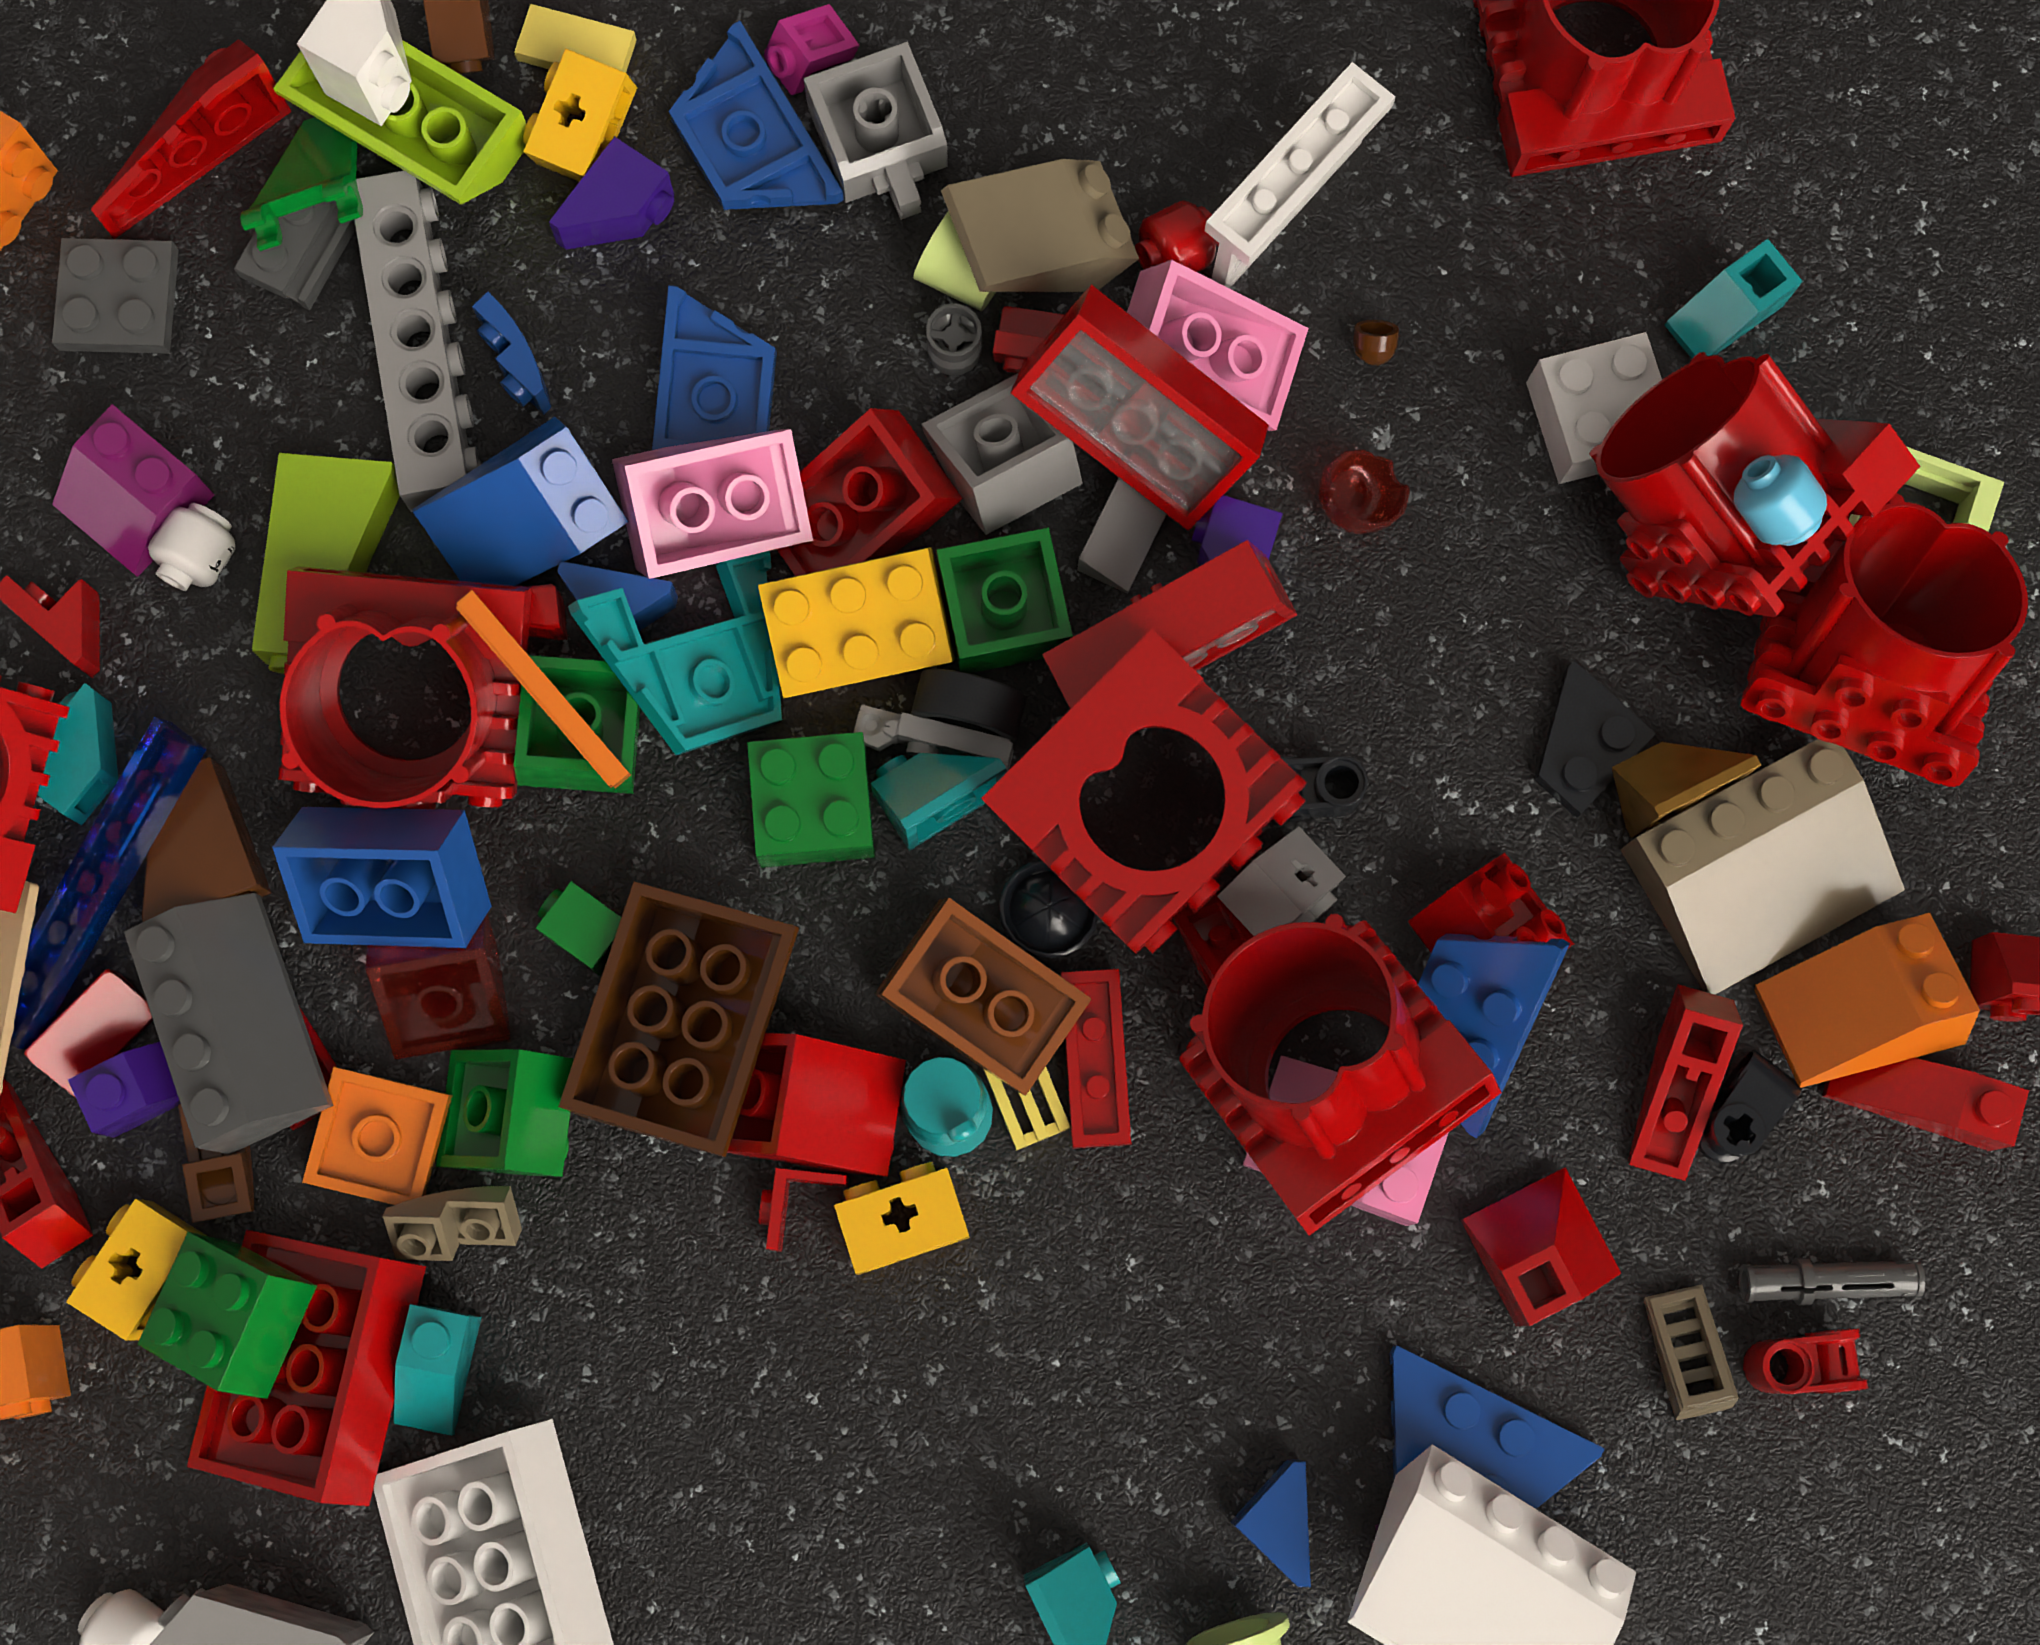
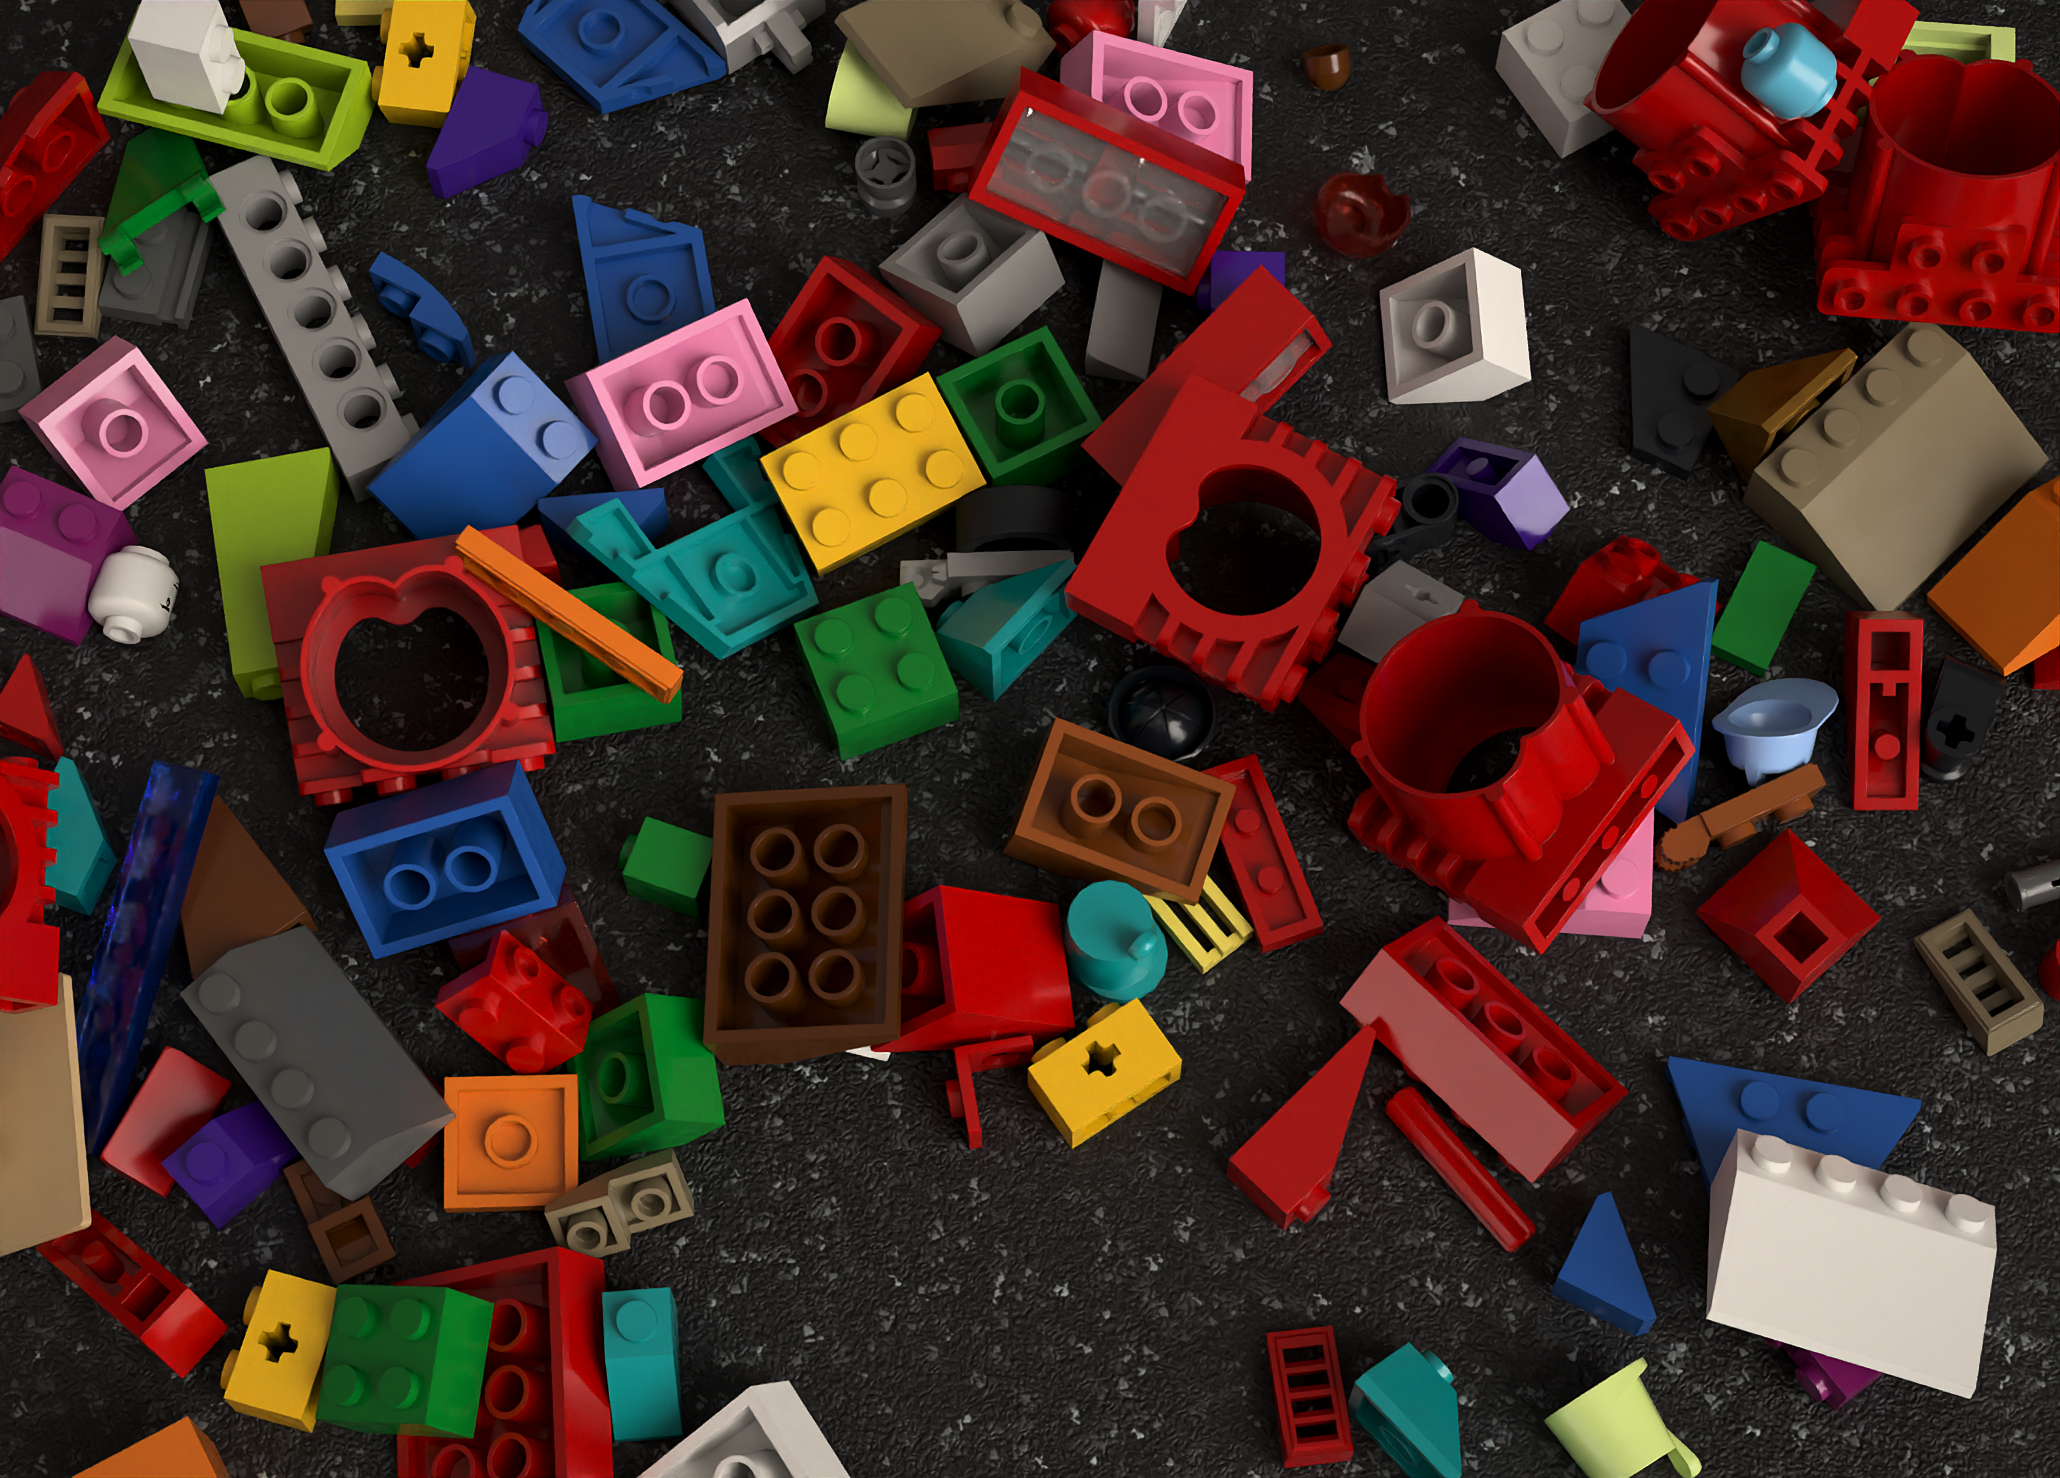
camera: 10 degrees left, 10 degrees down
(208, 211) = (55, 233): none -> dark tan slope
(215, 386) = (113, 425): none -> bright pink slope
(413, 1025) = (518, 1008): none -> red bracket
(987, 1610) = (1316, 1449): none -> red slope
(1053, 1336) = (1297, 1149): none -> red slope
(1185, 1393) = (1460, 1169): none -> red axle
(1238, 1293) = (1483, 1047): none -> red slope
(1406, 786) = (1502, 492): none -> dark purple slope
(1413, 626) = (1455, 331): none -> white slope
(1519, 1148) = (1735, 819): none -> dark orange hinge
(1583, 1071) = (1775, 726): none -> light blue piece
(1606, 956) = (1761, 608): none -> green tile

